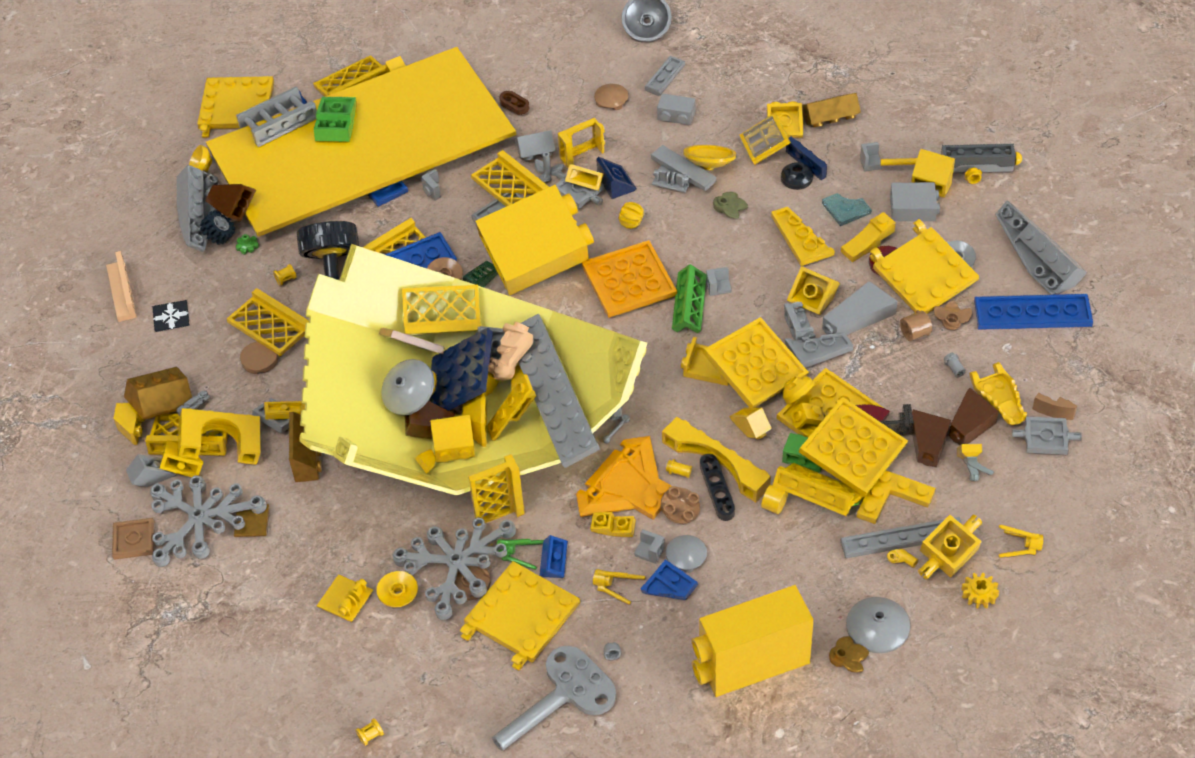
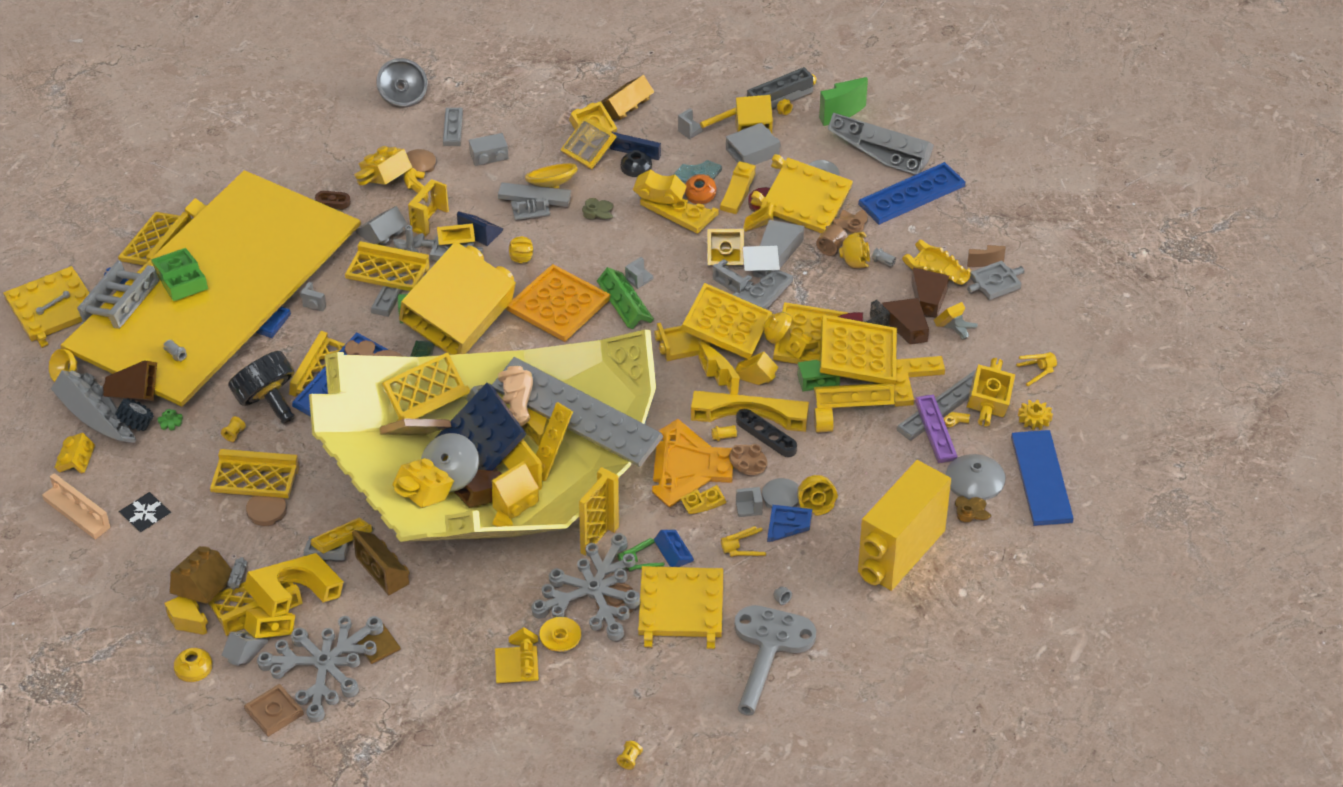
camera: 35 degrees left, 5 degrees down
(106, 472) = (194, 670): none -> yellow piece
(155, 241) = (75, 453): none -> yellow bracket
(220, 105) = (40, 310): none -> light grey hinge
(282, 185) = (178, 353): none -> light grey pin
(366, 395) = (422, 482): none -> yellow brick
(368, 575) = (521, 634): none -> yellow tile
(427, 253) = (364, 348): none -> medium nougat plate
(571, 88) = (383, 166): none -> yellow brick
(590, 109) = (411, 181): none -> yellow piece
(711, 569) = (817, 493): none -> yellow cylinder
(713, 404) = (716, 365): none -> yellow slope
(791, 207) = (659, 188): none -> yellow brick
(833, 315) = (761, 258): none -> white sticker
(837, 229) = (700, 195): none -> orange piece
(865, 275) = (759, 217): none -> yellow slope
(873, 558) = (935, 428): none -> medium lavender tile
(931, 346) = (855, 250): none -> yellow cylinder
(940, 657) = (1042, 478): none -> blue tile
(1031, 191) = (845, 99): none -> bright green slope

